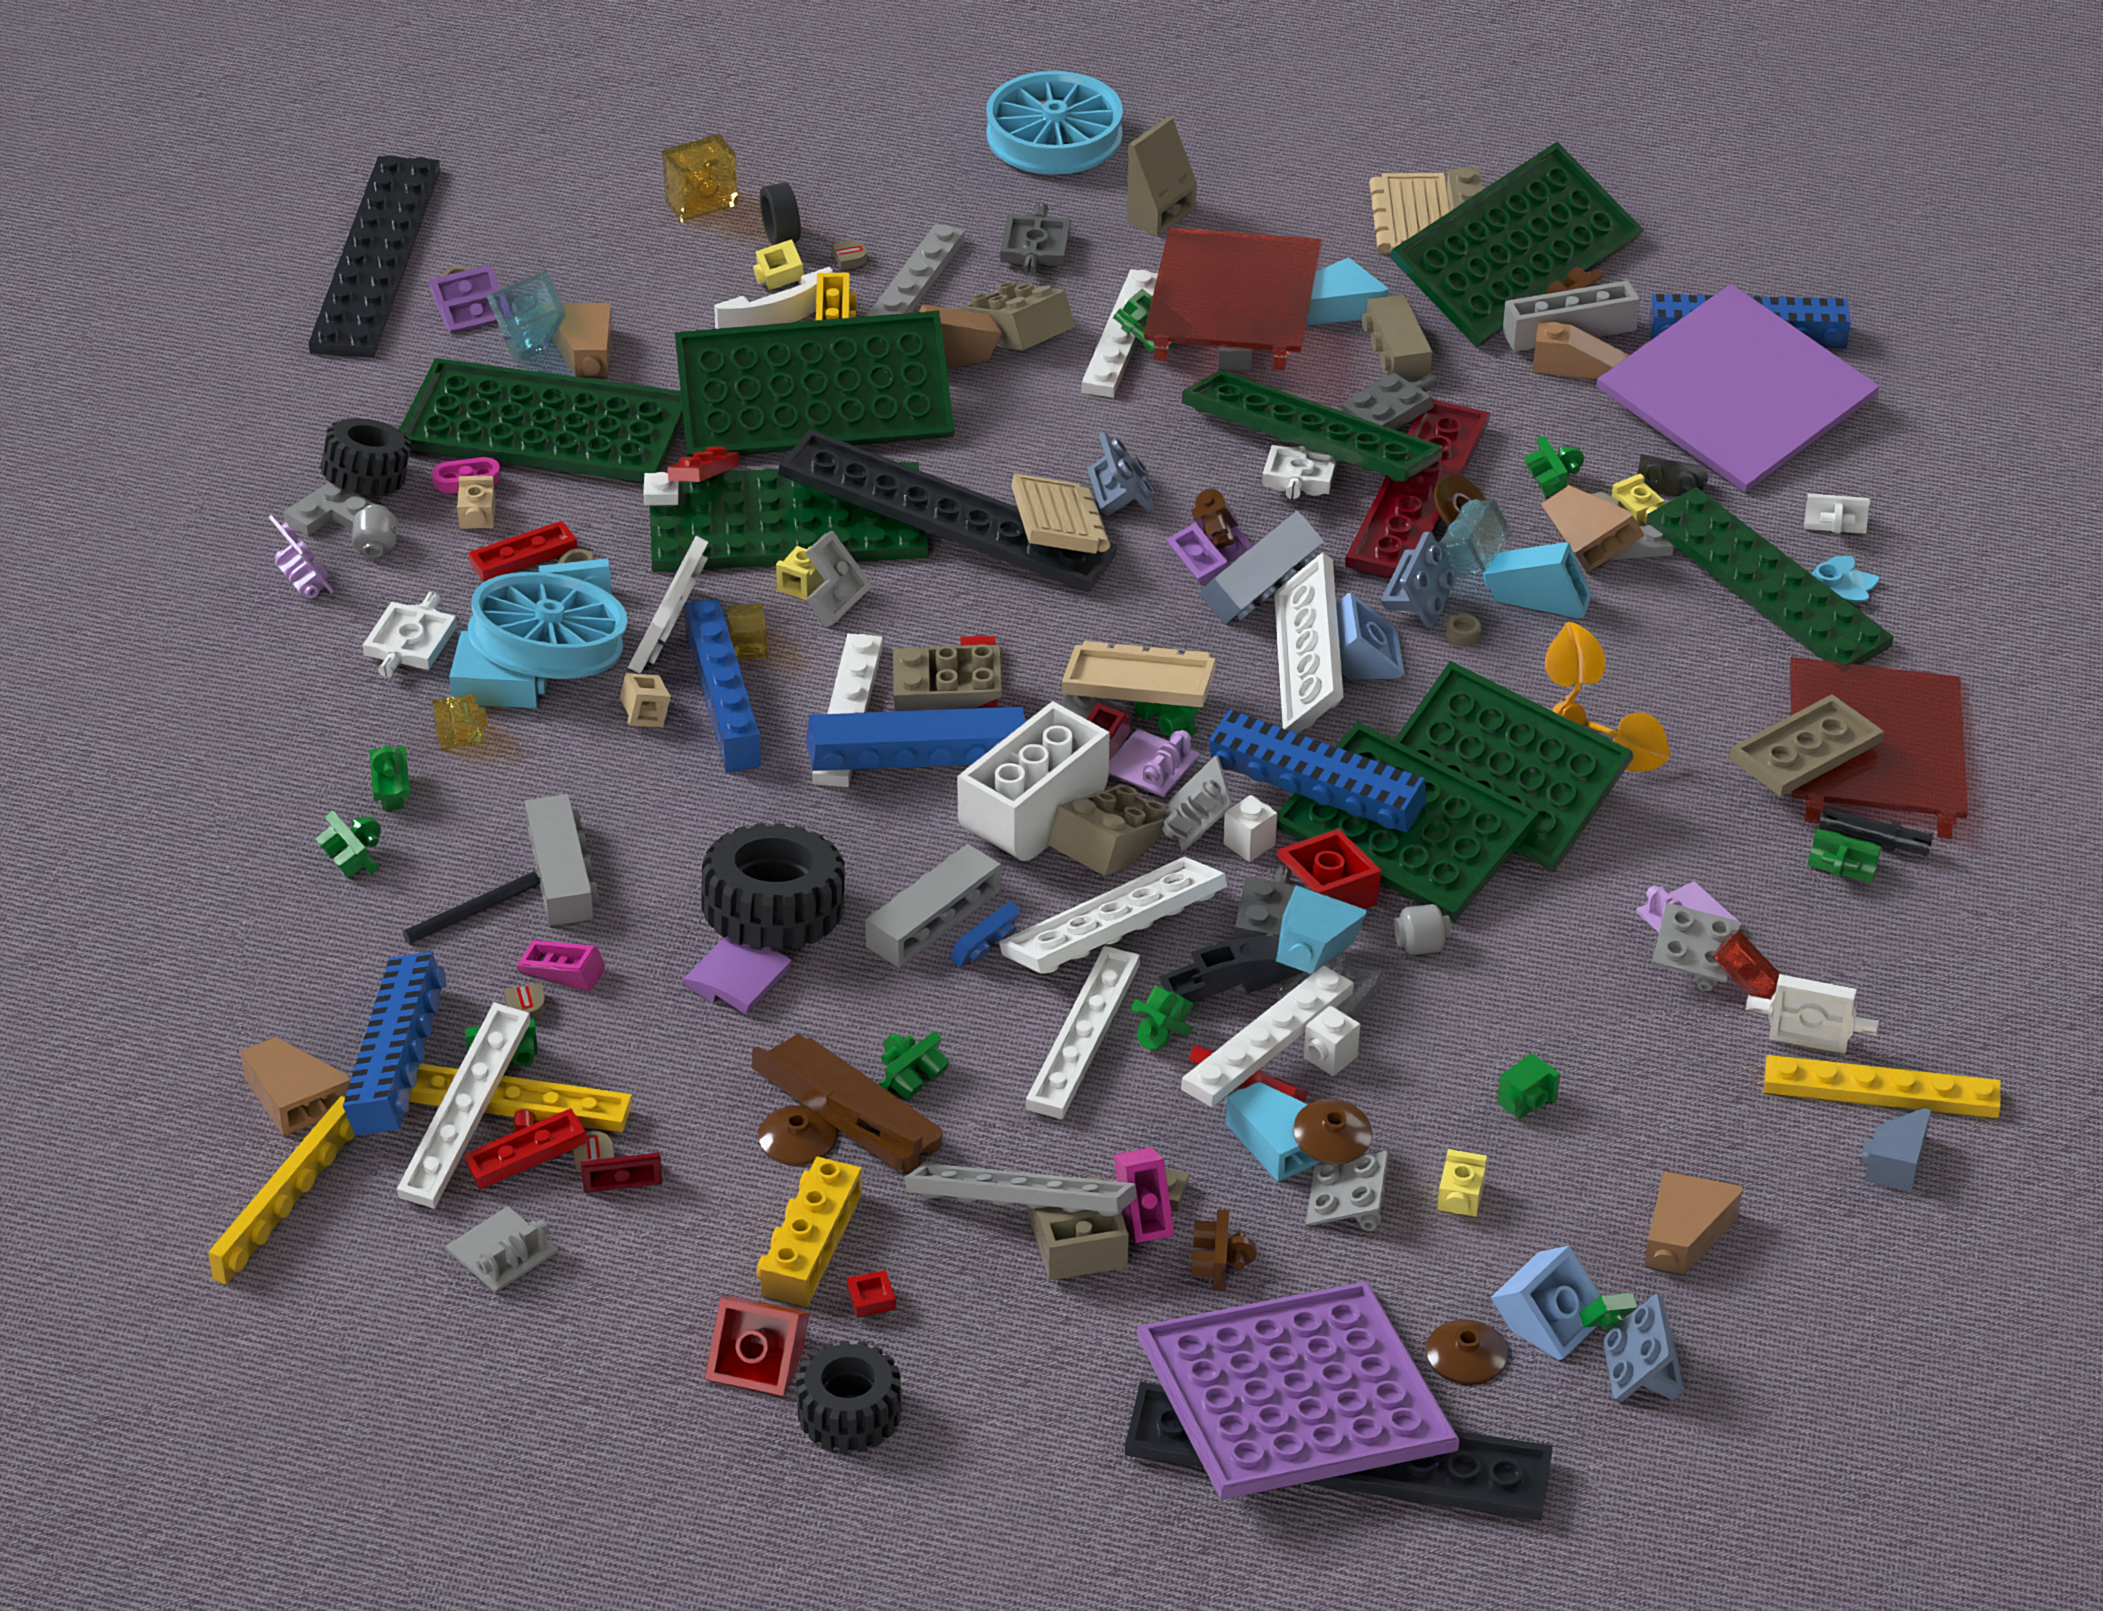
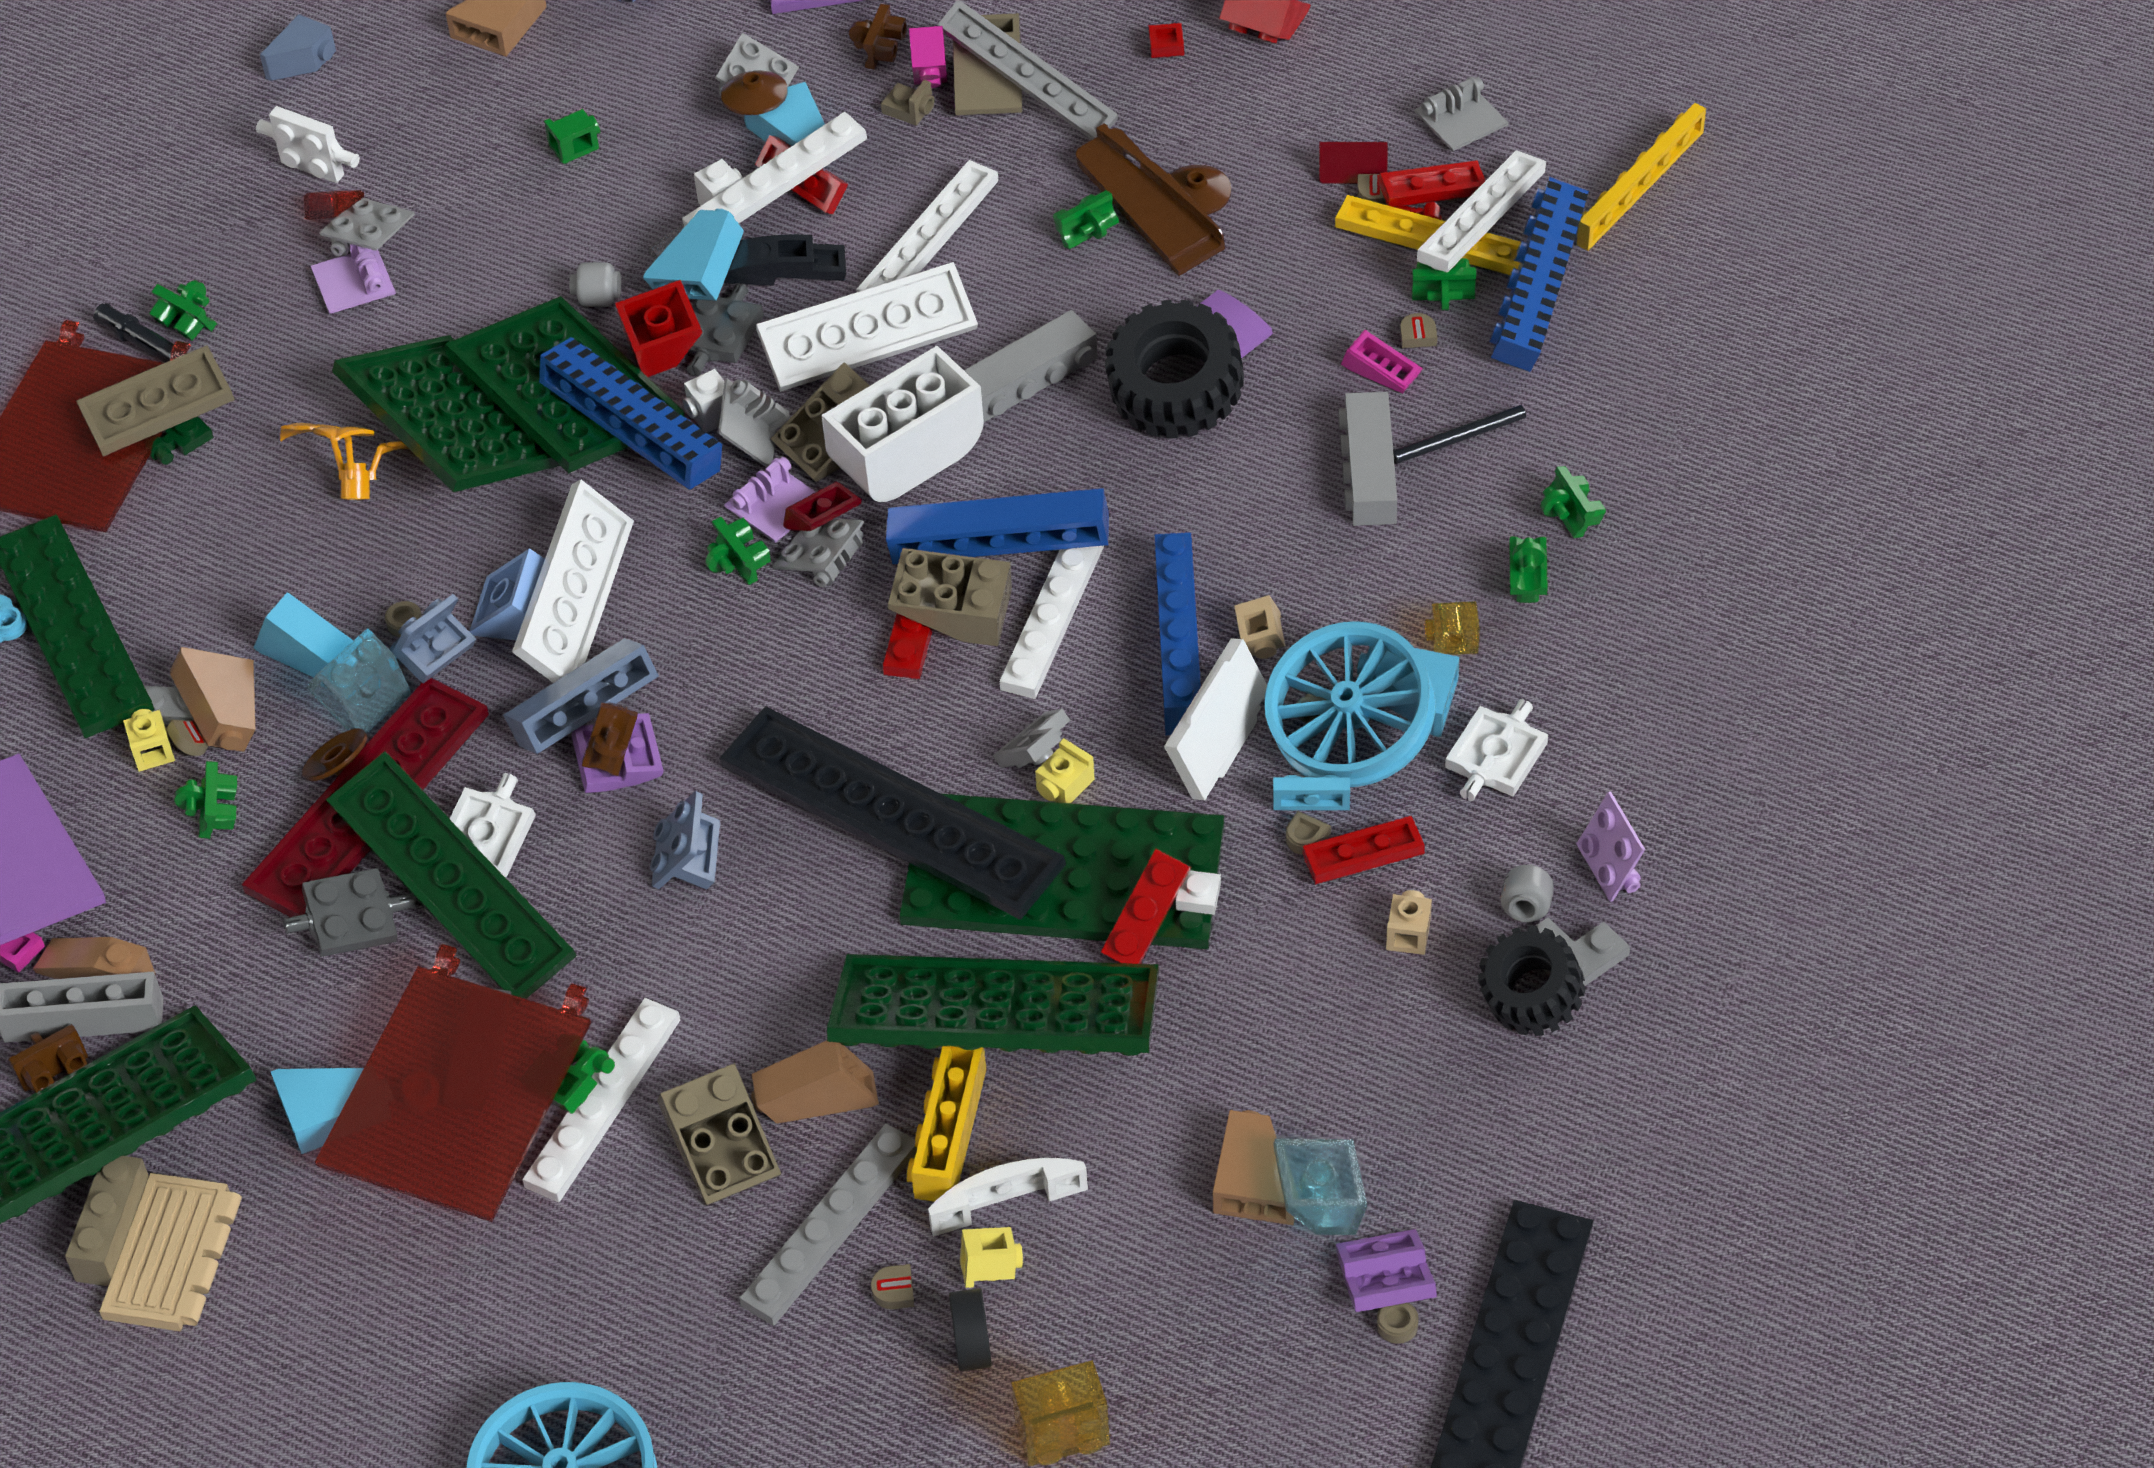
camera: 165 degrees left, 10 degrees up
(292, 1083) = (1631, 266): medium nougat slope -> none
(447, 474) = (1416, 971): dark pink plate -> none
(543, 420) = (1319, 1046): dark green plate -> none
(747, 630) = (1139, 701): clear yellow brick -> none
(810, 1231) = (1204, 90): yellow brick -> none
(977, 941) = (988, 329): blue plate -> none
(1035, 240) = (656, 1265): dark grey plate -> none
(1059, 514) = (773, 789): tan hinge -> none
(1139, 675) = (759, 552): tan hinge -> none
(1159, 179) = (477, 1298): dark tan slope -> none
(1164, 1013) = (858, 220): green hips -> none
(1397, 337) = (290, 1016): dark tan brick -> none
(1462, 1183) = (664, 58): light yellow brick -> none
(1671, 475) = (77, 769): black hinge -> none
(1882, 1086) = (251, 106): yellow plate -> none

